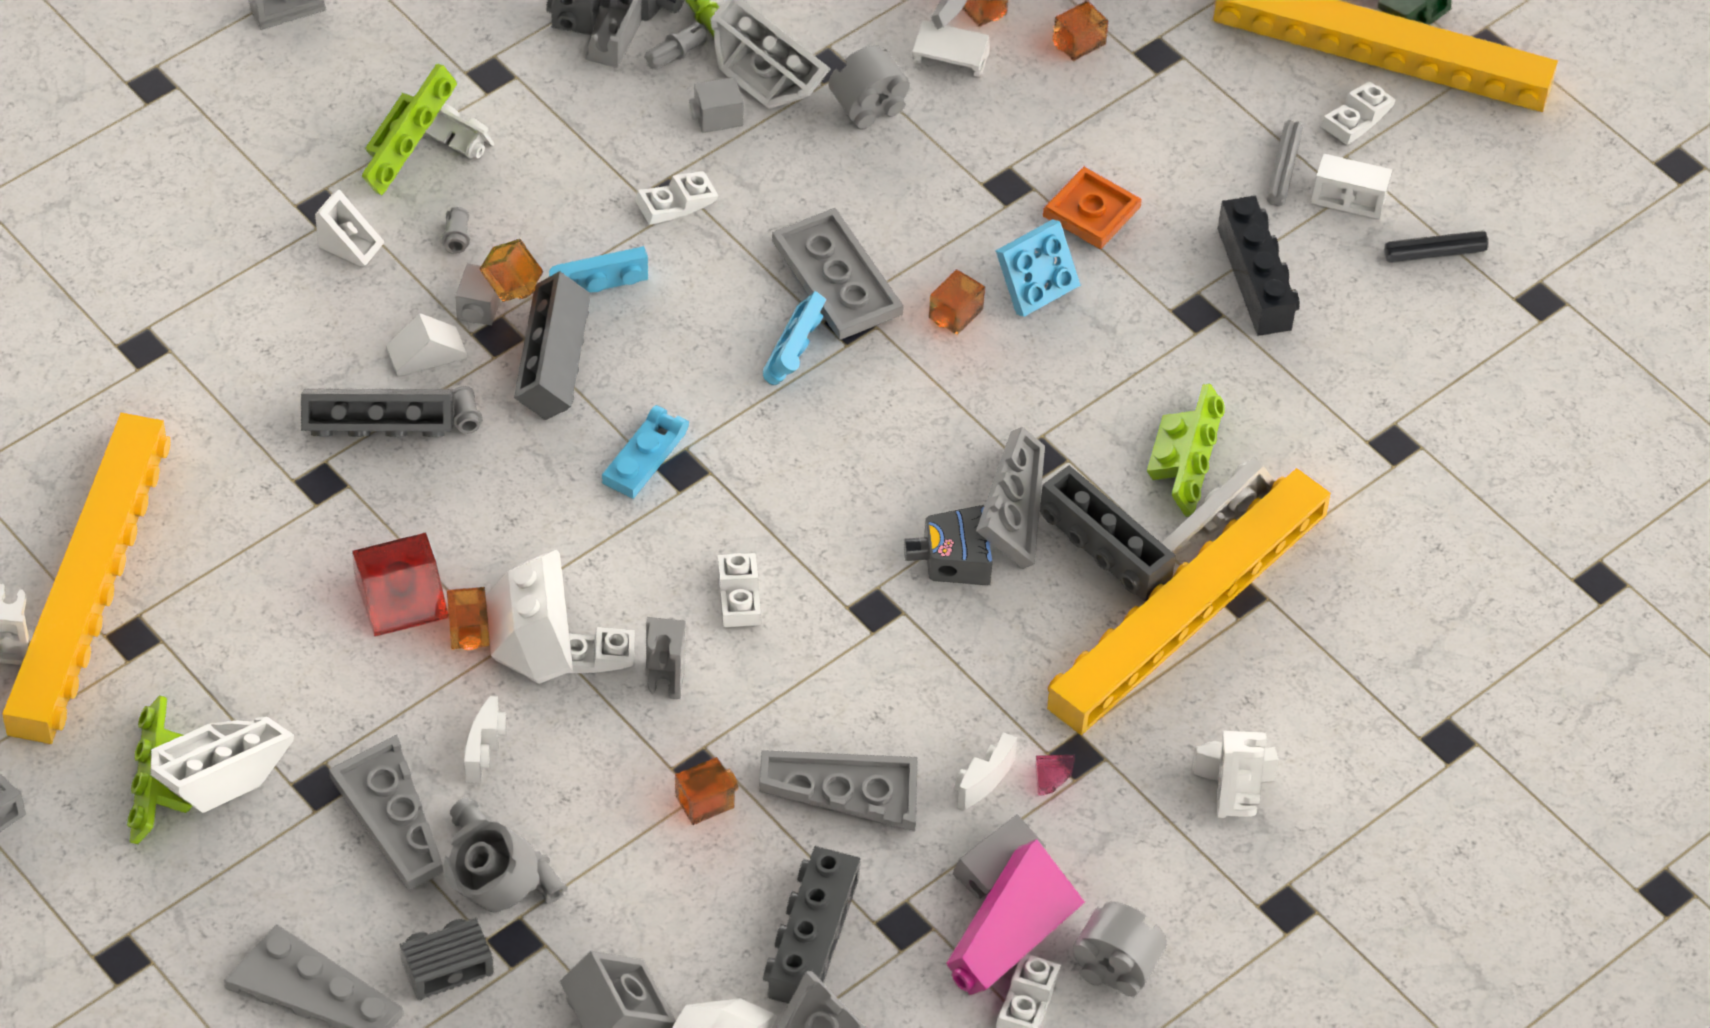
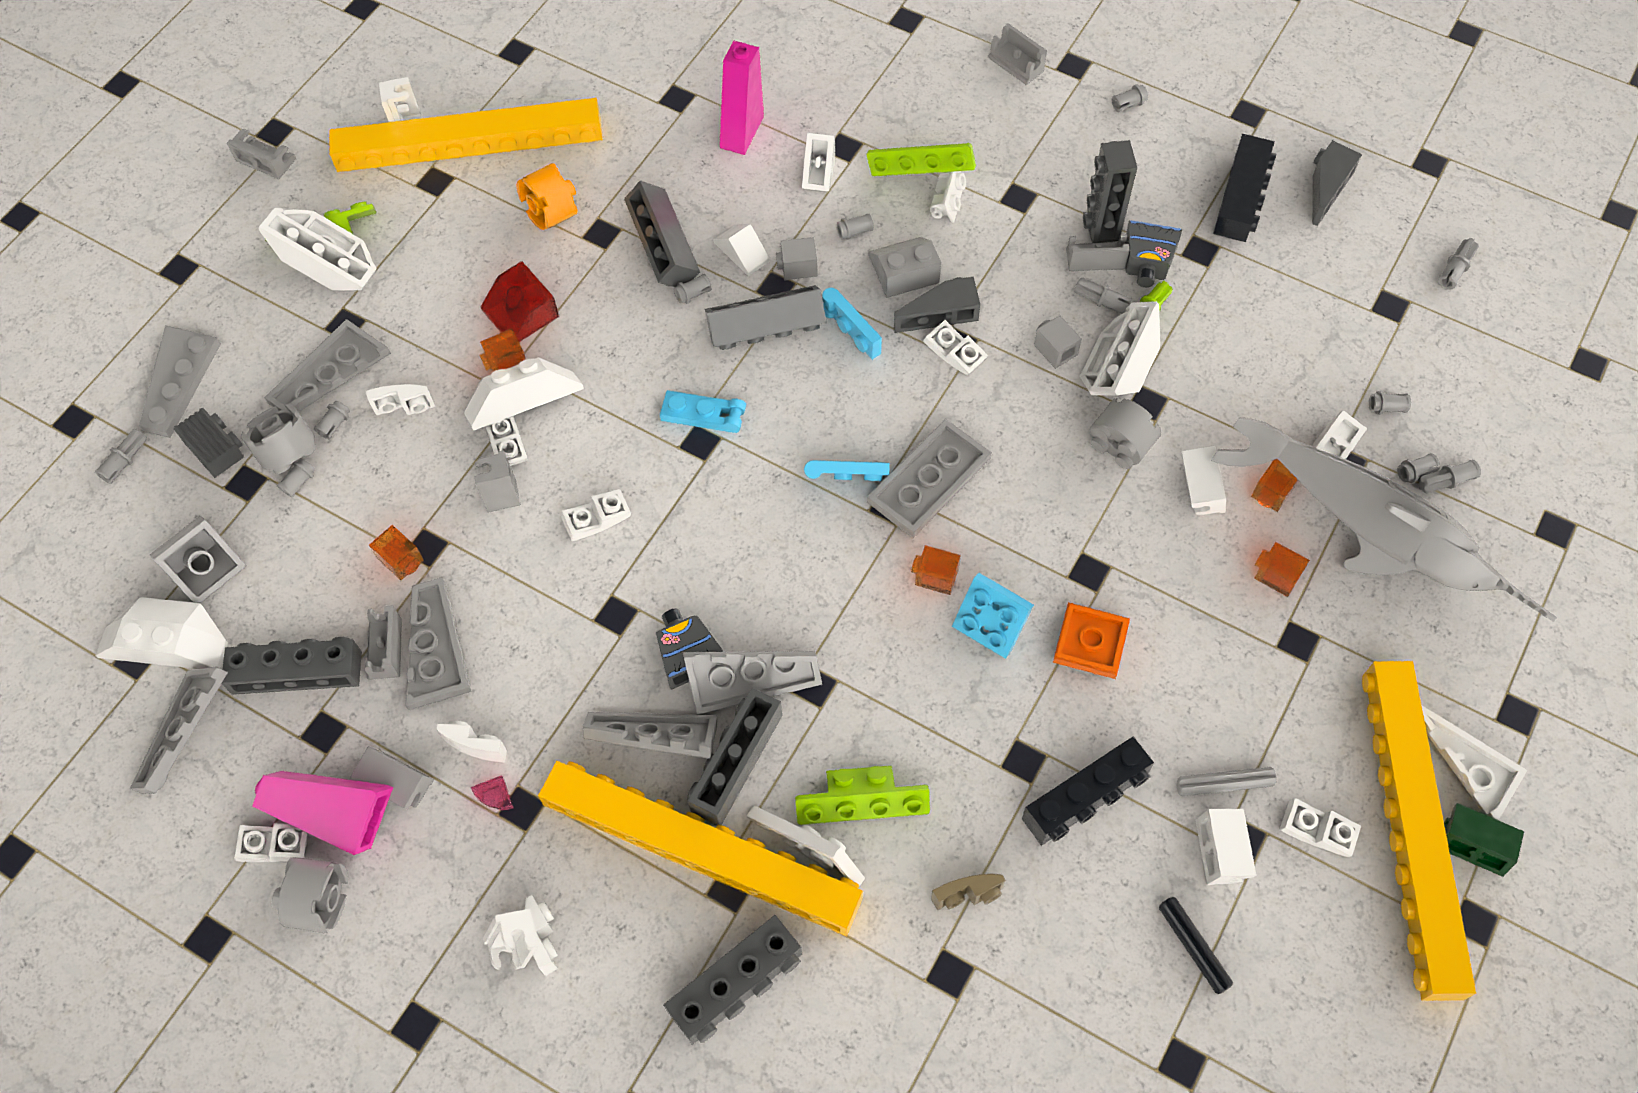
camera: 75 degrees right, 10 degrees up
(228, 258) = (741, 97): none -> dark pink slope
(256, 506) = (547, 197): none -> light orange brick
(511, 270) = (810, 262): clear orange brick -> none
(537, 199) = (906, 266): none -> light grey slope
(617, 180) = (950, 301): none -> dark grey slope
(821, 825) = (384, 644): none -> light grey hinge
(1046, 595) = (661, 732): none -> light grey wing
(1321, 403) = (977, 887): none -> dark tan slope
(1343, 609) = (733, 980): none -> dark grey brick

